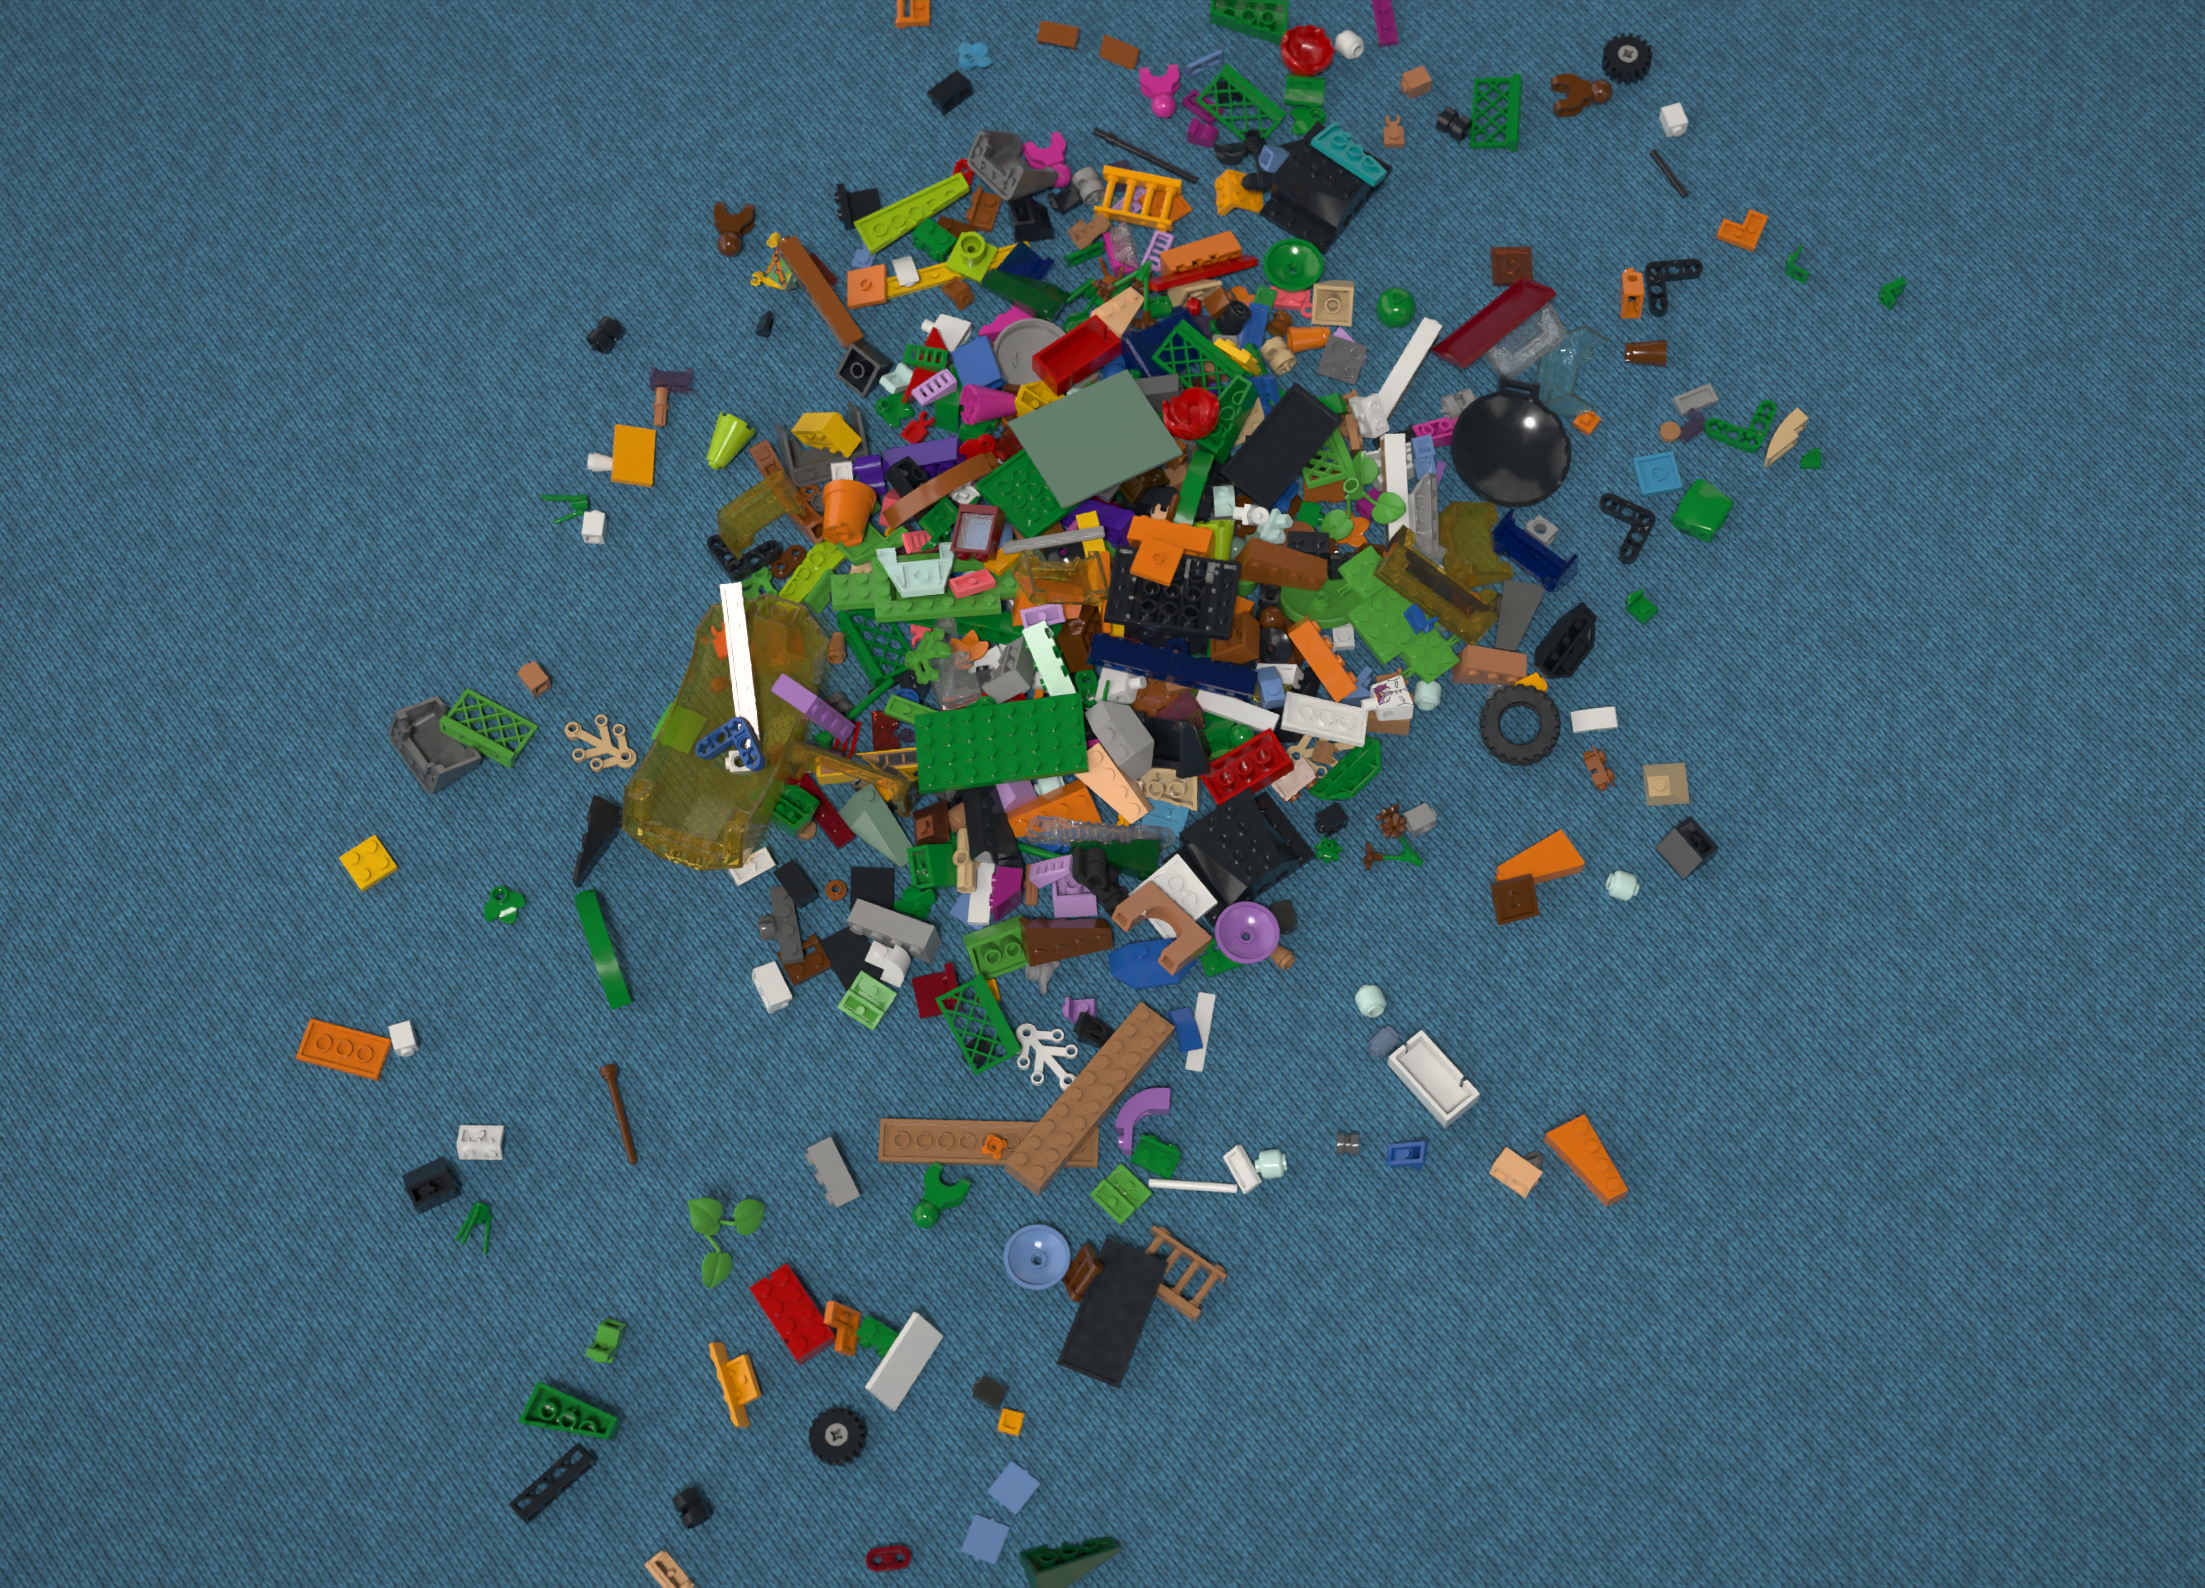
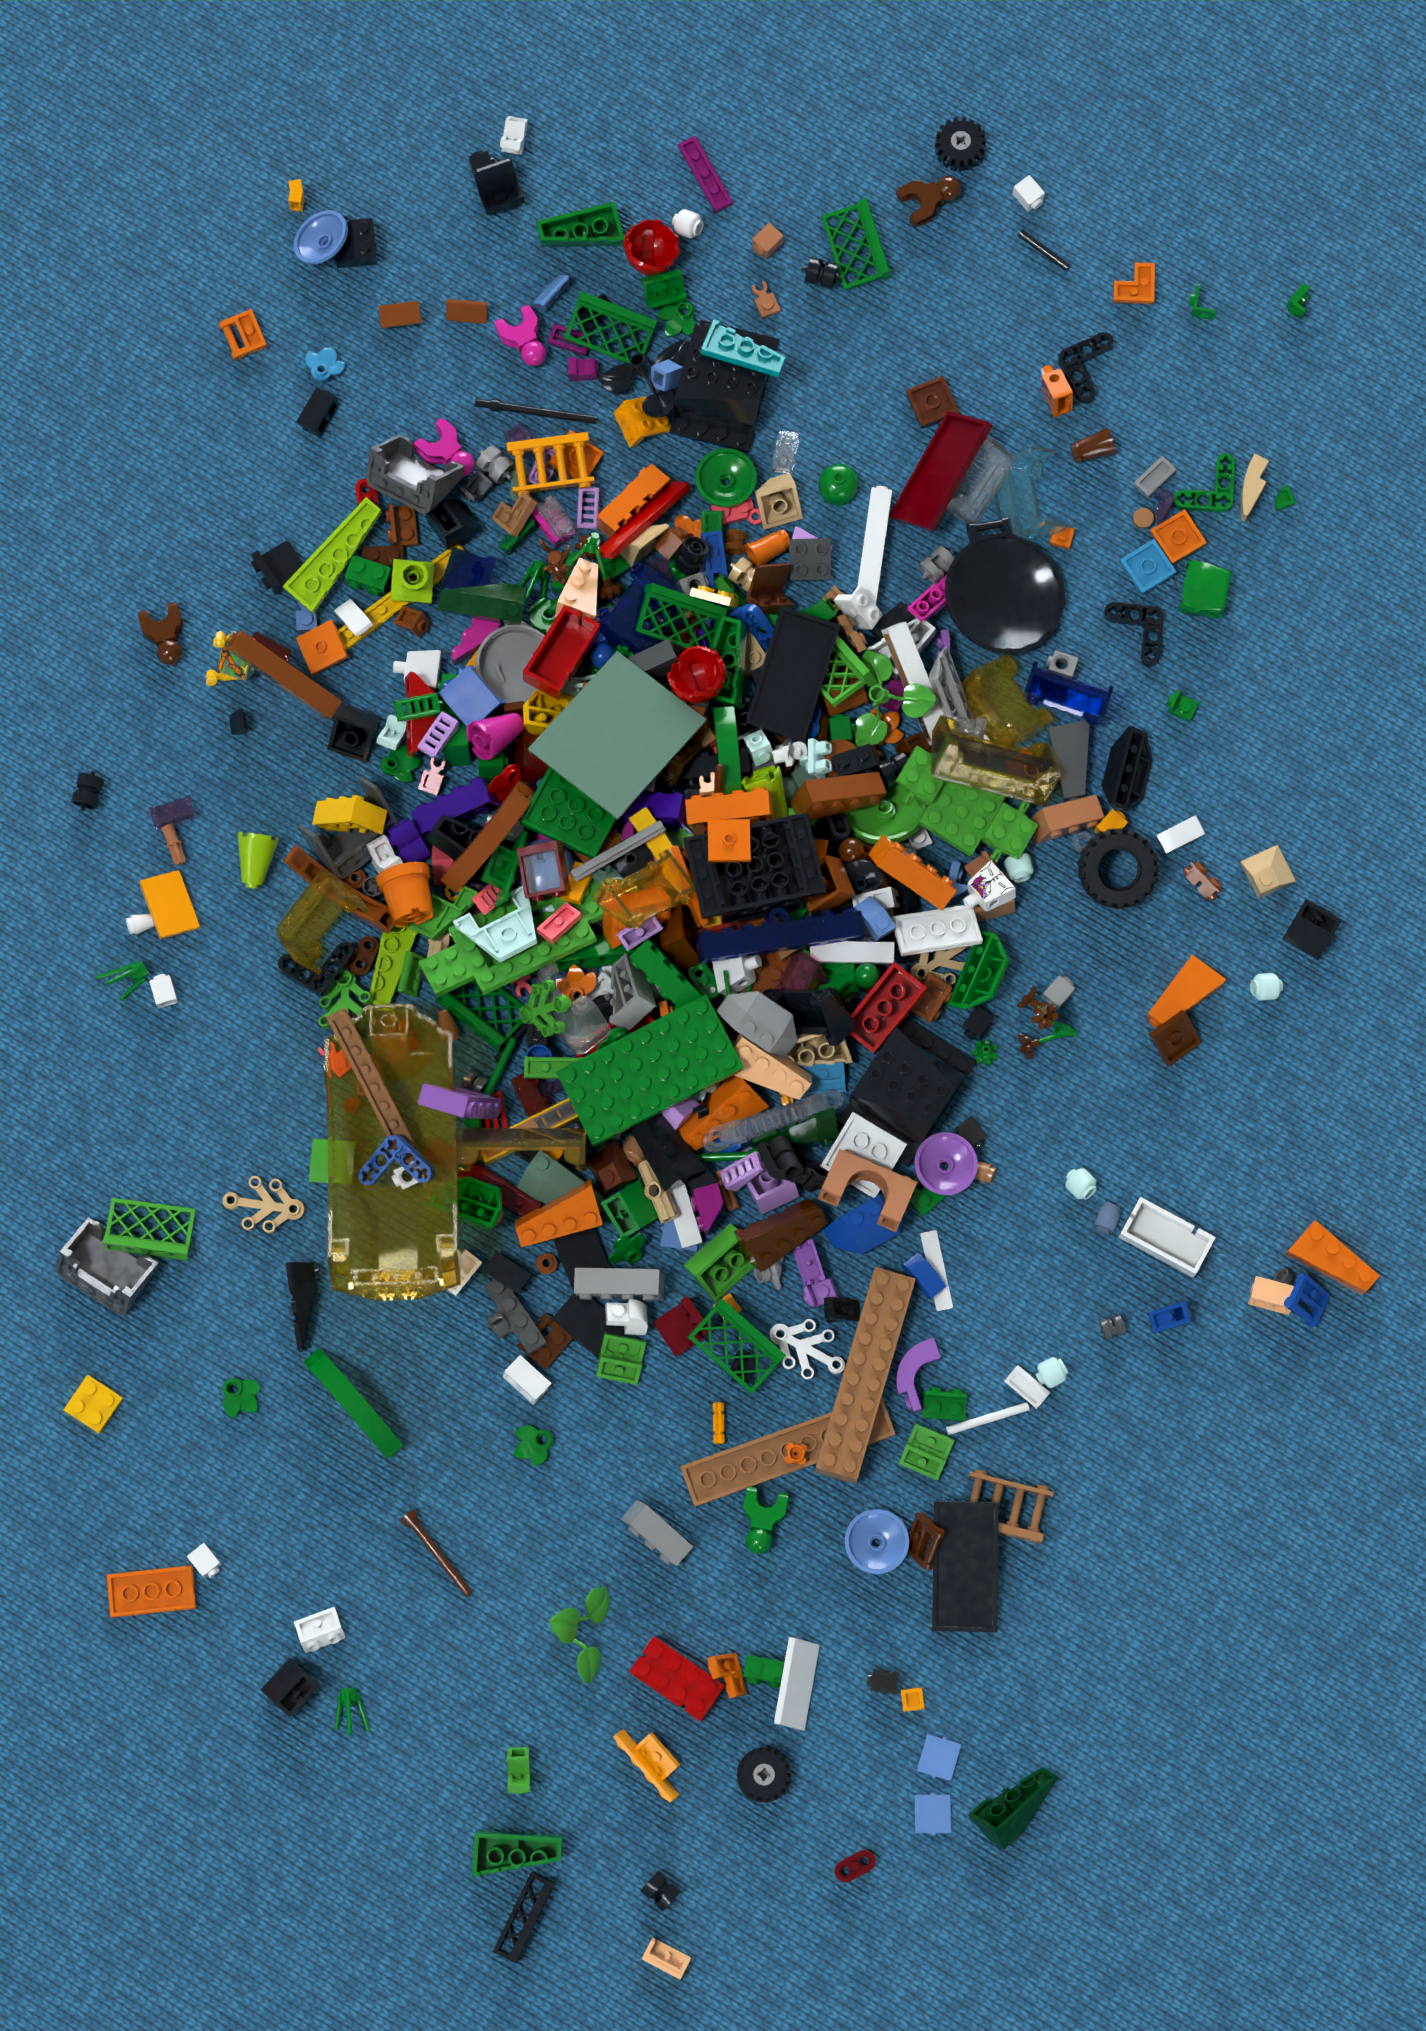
camera: 25 degrees left, 10 degrees up
(534, 679) = (172, 1164): nougat brick -> none
(750, 1048) = (530, 1446): none -> green plate
(869, 850) = (560, 1217): none -> orange wedge
(934, 1094) = (718, 1423): none -> light orange axle
(1037, 798) = (702, 1109): none -> black hand
(1081, 978) = (808, 1263): none -> medium lavender hinge
(1194, 305) = (650, 557): red plate -> none
(1293, 366) = (767, 587): none -> copper bracket
(1323, 752) = (946, 961): medium nougat tile -> none
(1357, 263) = (785, 451): none -> clear slope
(1417, 621) = (987, 803): blue bracket -> none
(1422, 456) = (927, 635): medium blue slope -> none
(1554, 1185) = (1310, 1294): none -> blue plate
(1696, 458) = (1178, 537): none -> orange plate

